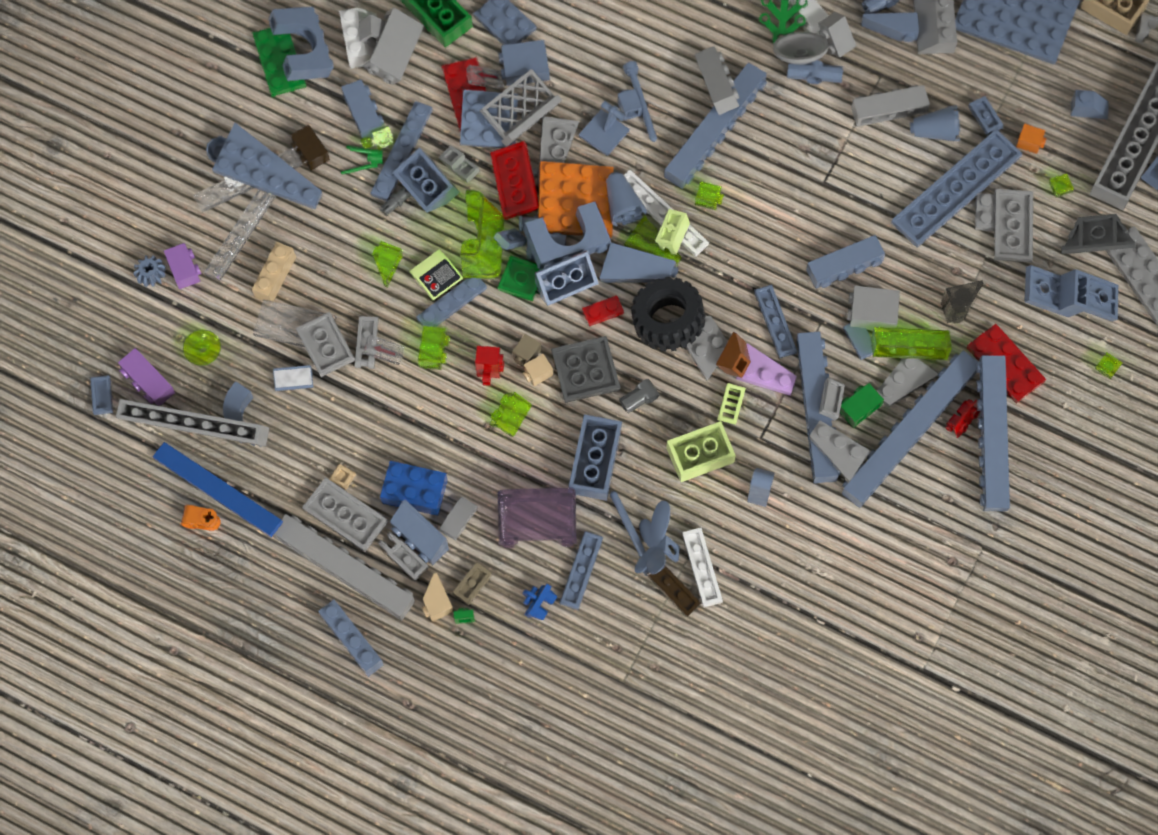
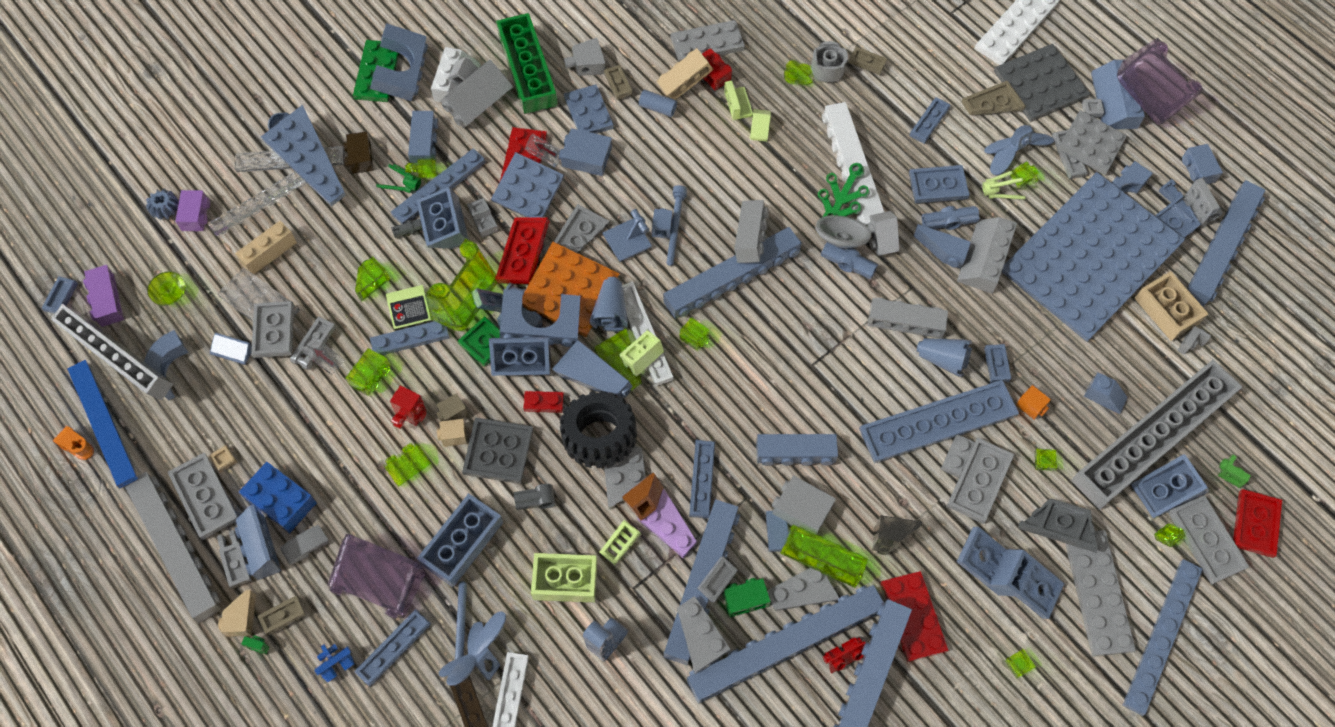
camera: 20 degrees right, 5 degrees down
(351, 638) = (138, 620): sand blue brick -> none
(533, 115) = (559, 202): light grey fence -> none

